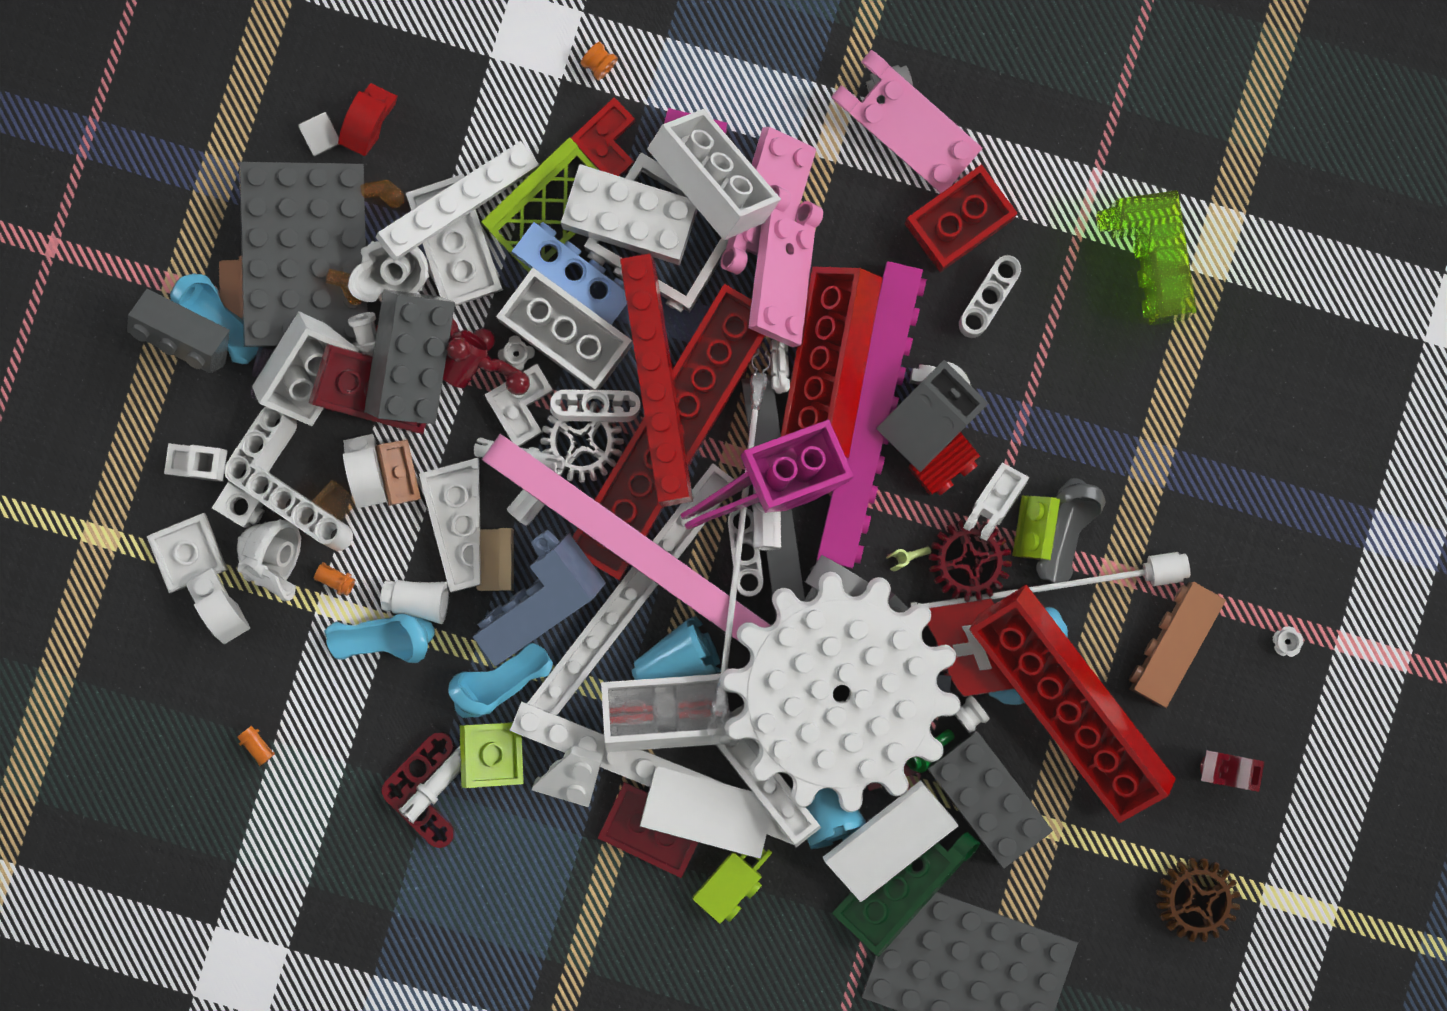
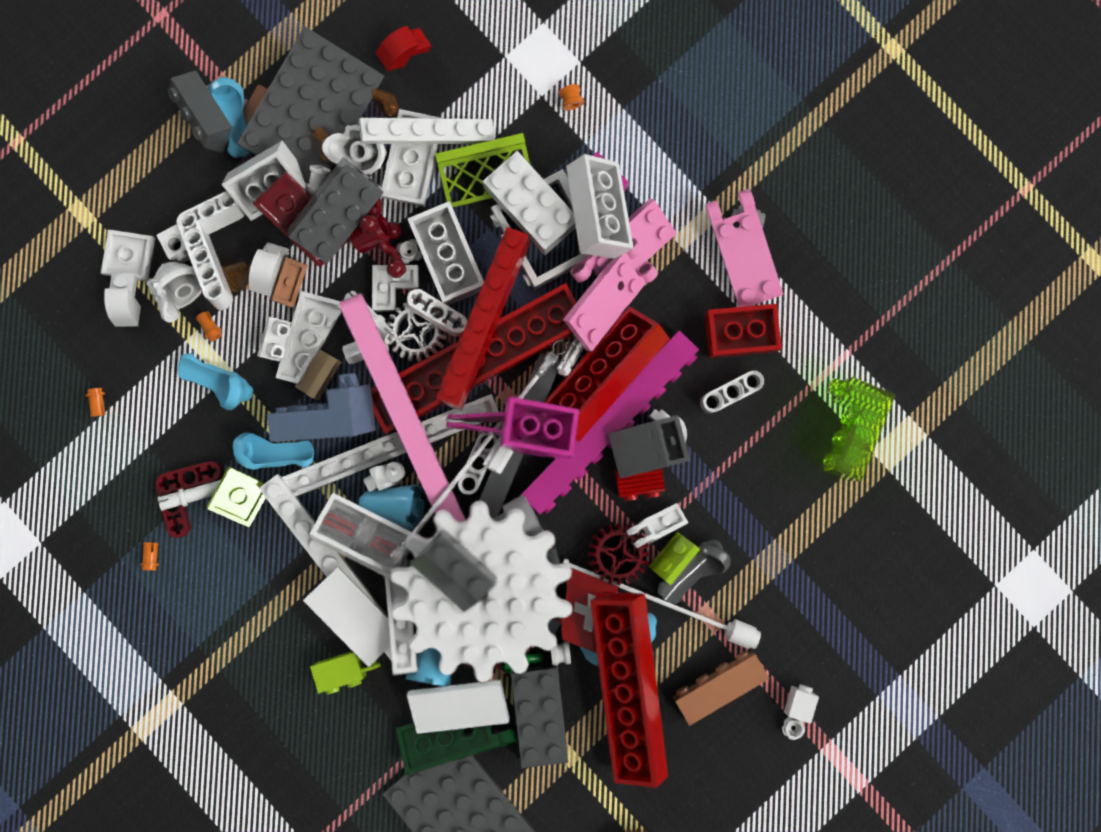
camera: 30 degrees right, 0 degrees up
(195, 462) = (164, 200): white brick -> none
(319, 133) = (368, 40): white slope -> none
(416, 599) = (251, 369): white plant -> none
(422, 547) = (274, 338): none -> white hips
(427, 886) = (149, 559): none -> orange pin
(529, 253) = (455, 189): light blue brick -> none
(571, 777) = (281, 541): white wing -> none
(598, 138) = (543, 144): red plate -> none
(648, 629) = (385, 476): none -> white hips
(655, 847) = (292, 596): dark red plate -> none
(798, 683) = (454, 571): none -> dark grey slope
(904, 557) = (577, 527): yellowish green hand -> none
(1231, 770) = (707, 791): dark red brick -> none
(1280, 607) = (801, 703): none -> white brick

